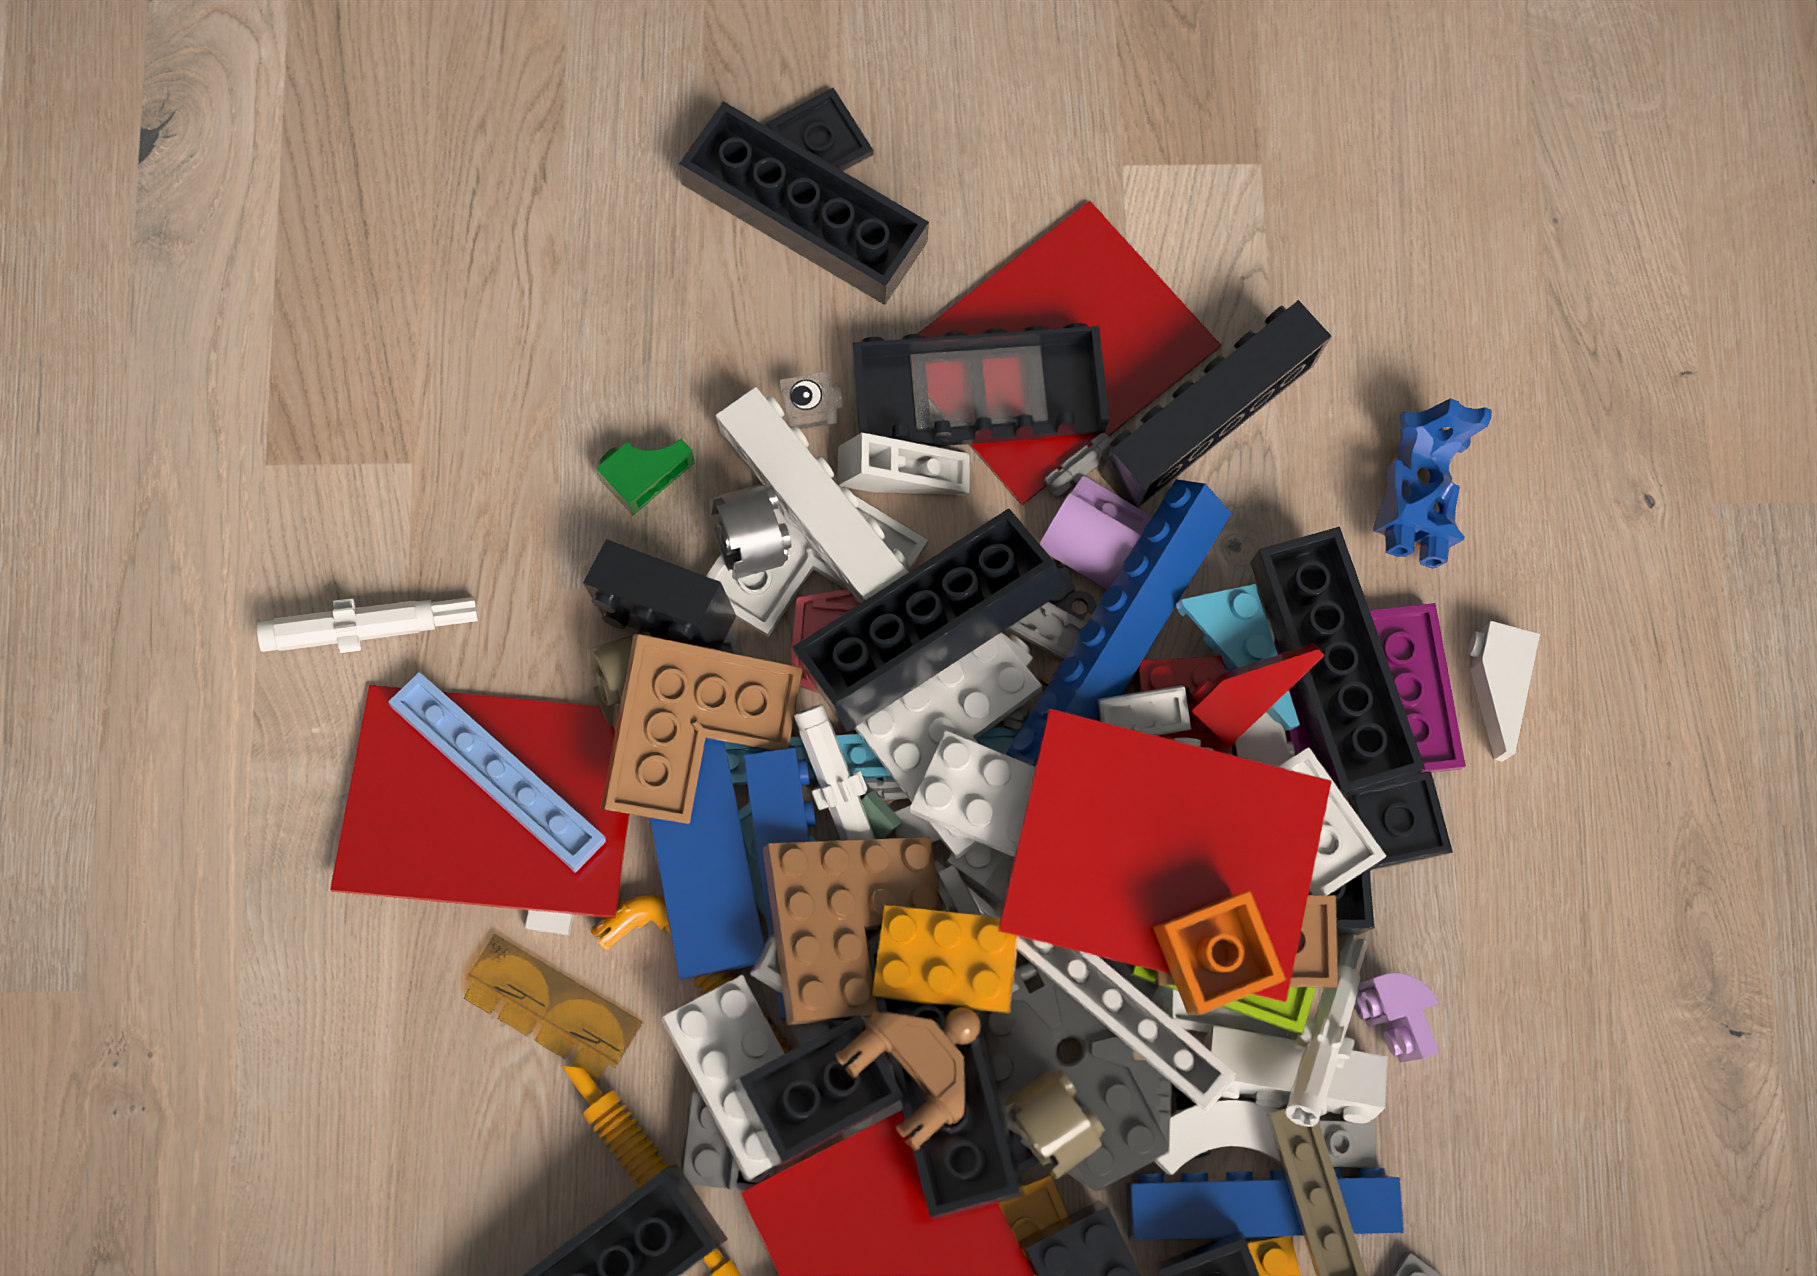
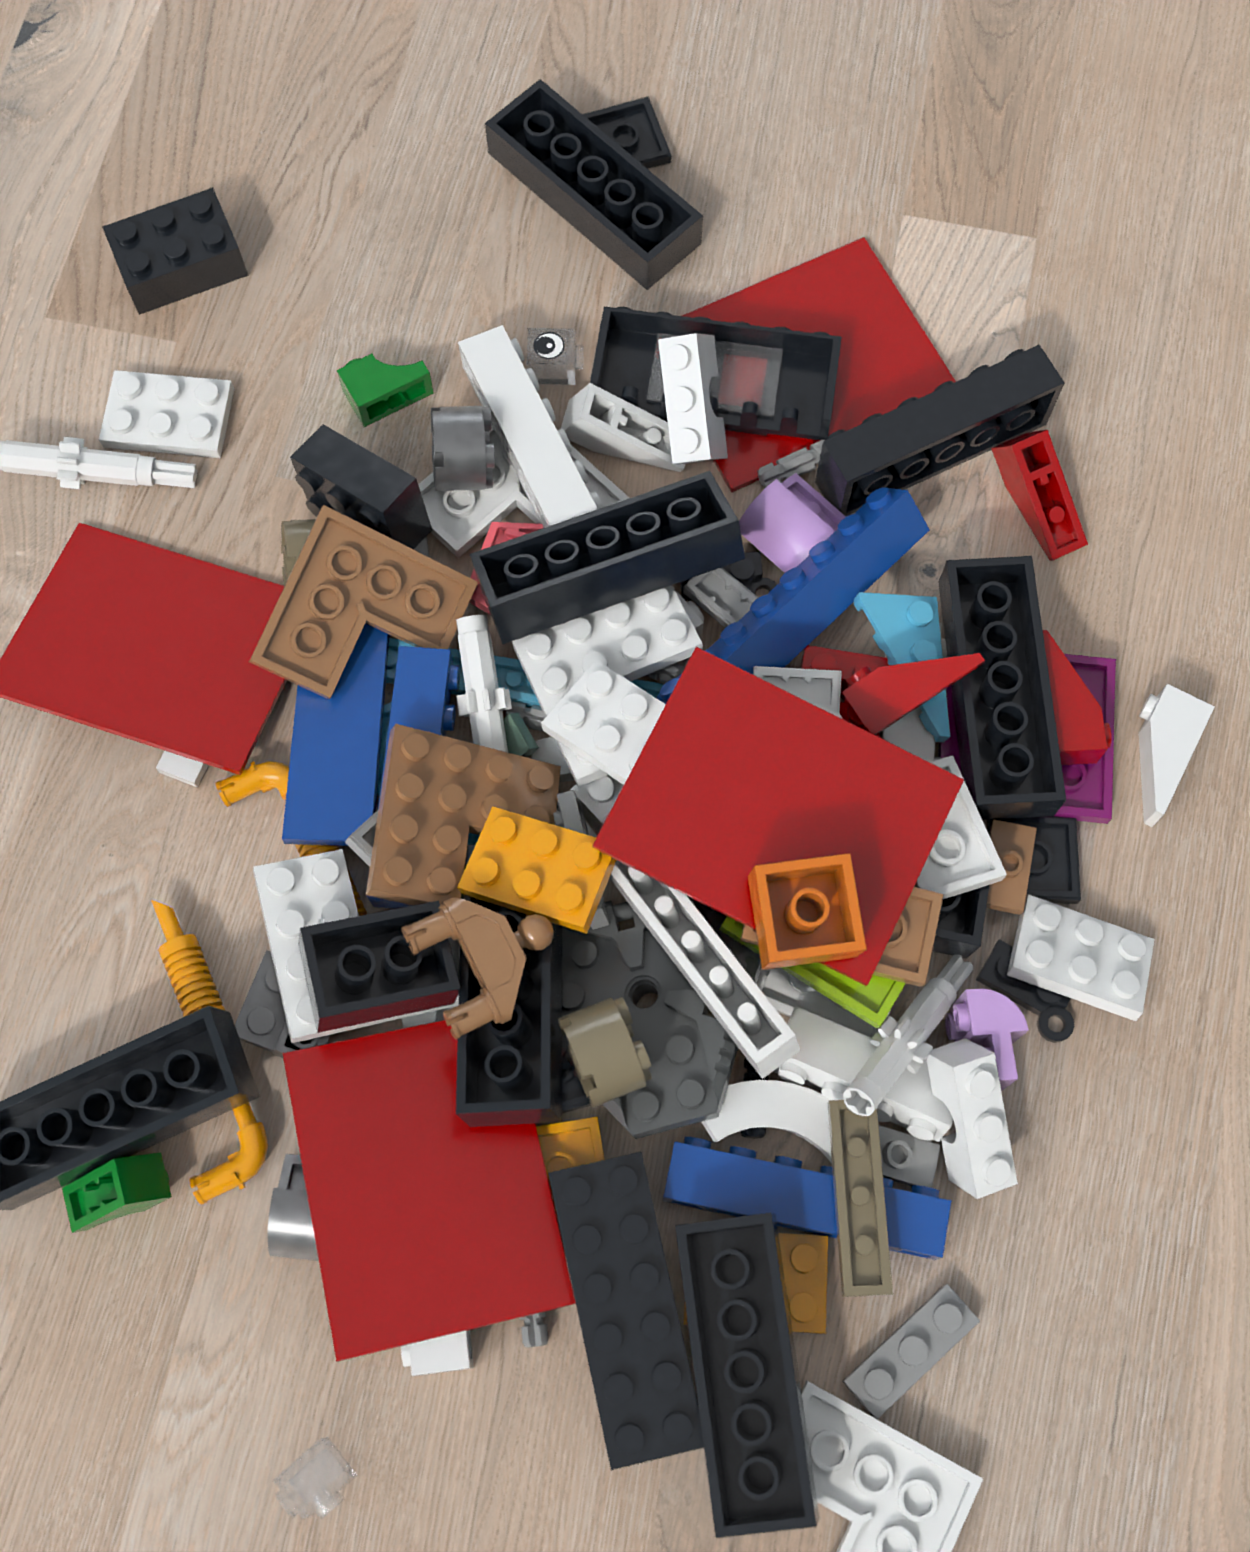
camera: 20 degrees right, 5 degrees down
(388, 366) = (175, 251): none -> black brick
(426, 547) = (166, 414): none -> white plate
(497, 772) = (169, 619): light blue plate -> none
(545, 996) = (170, 849): clear yellow windscreen -> none
(958, 404) = (687, 368): none -> white arch
(1326, 442) = (1041, 492): none -> red slope
(1382, 819) = (1015, 849): none -> medium nougat plate
(1408, 505) = (1108, 562): blue hips -> none
(1415, 1121) = (969, 1085): none -> white arch
(1416, 675) = (1078, 715): none -> red slope
(1423, 947) = (1031, 997): none -> black hinge
(1466, 910) = (1081, 958): none -> white plate

